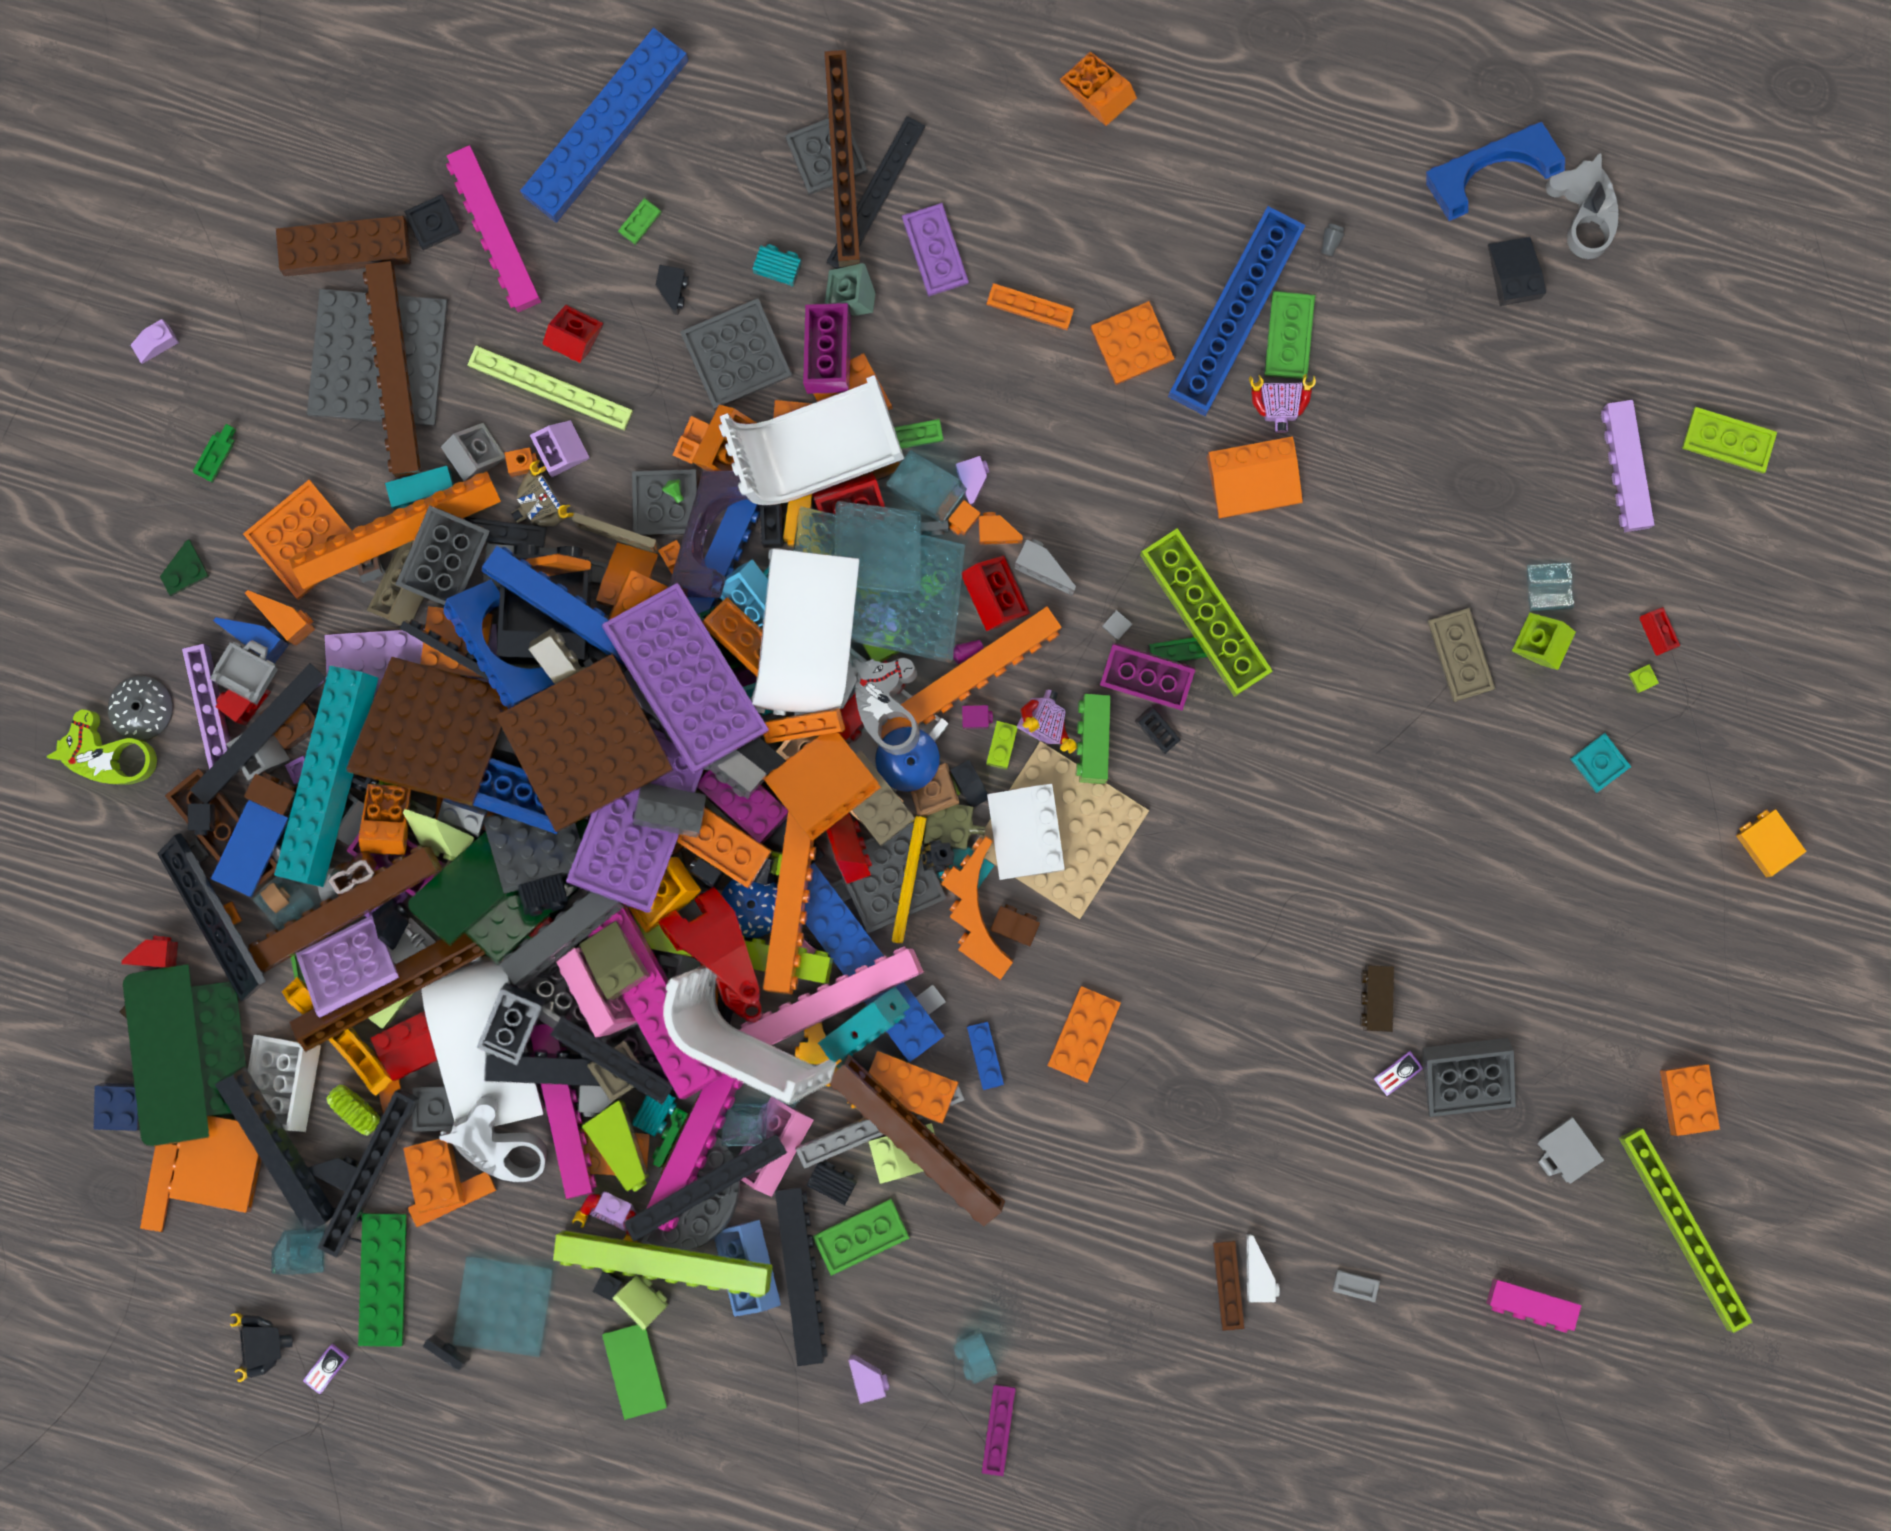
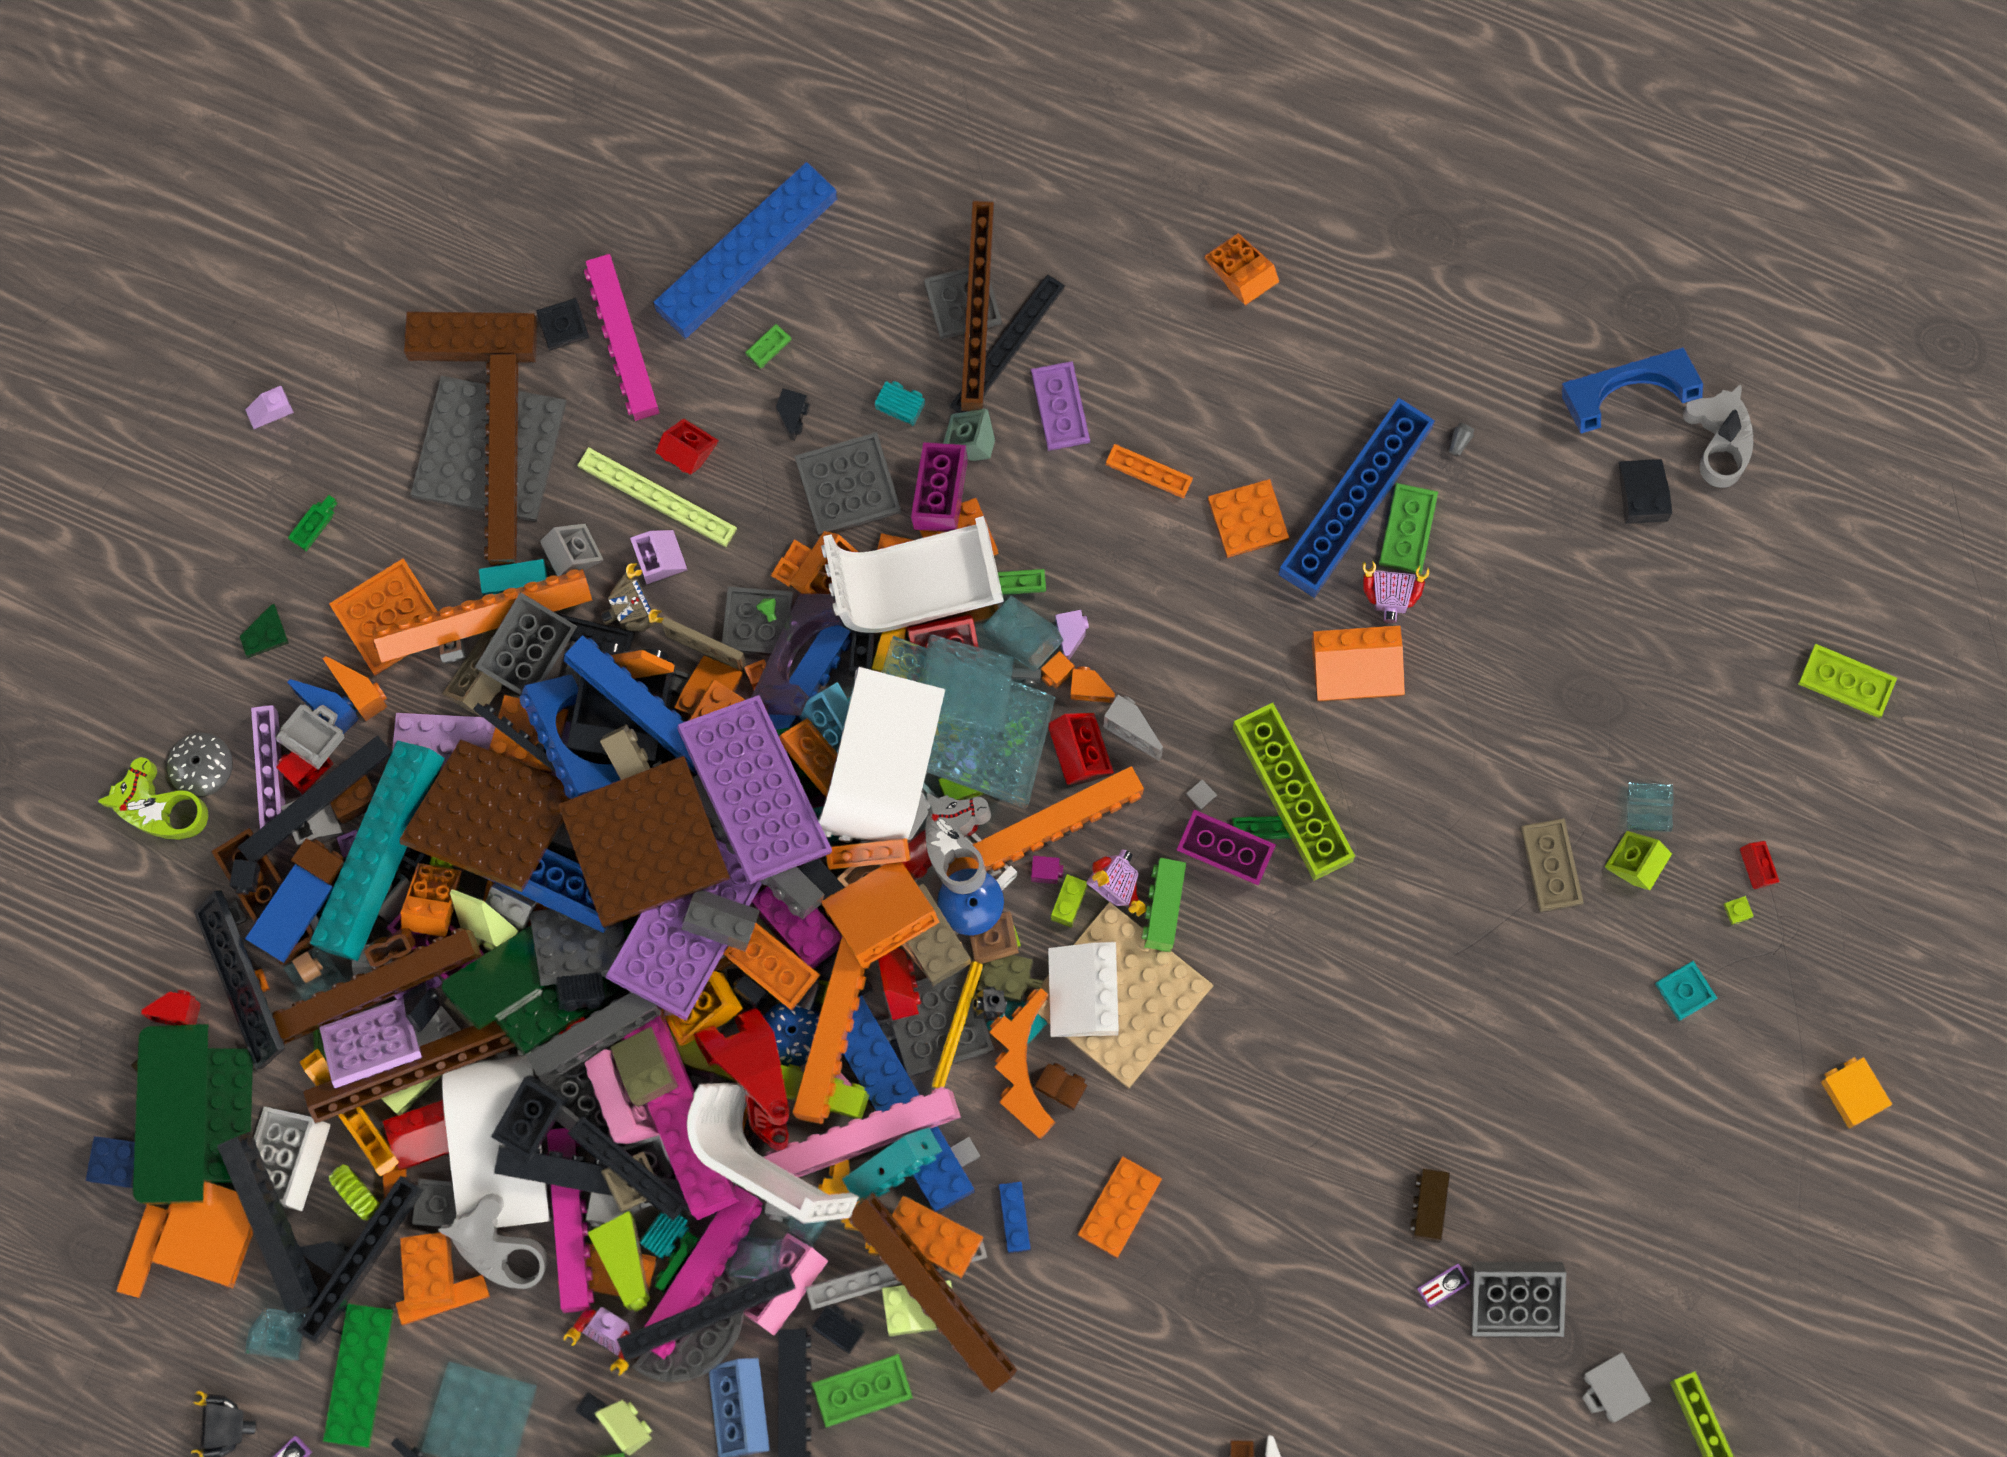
camera: 10 degrees right, 10 degrees down
(519, 461) = (616, 563): orange brick -> none
(663, 1262) = (653, 1389): lime brick -> none
(966, 650) = (1042, 801): magenta cone -> none
(969, 783) = (1031, 935): black slope -> none
(1140, 721) = (1237, 901): black slope -> none
(1628, 466) = (1741, 695): lavender brick -> none
(1689, 1100) = (1748, 1349): orange brick -> none

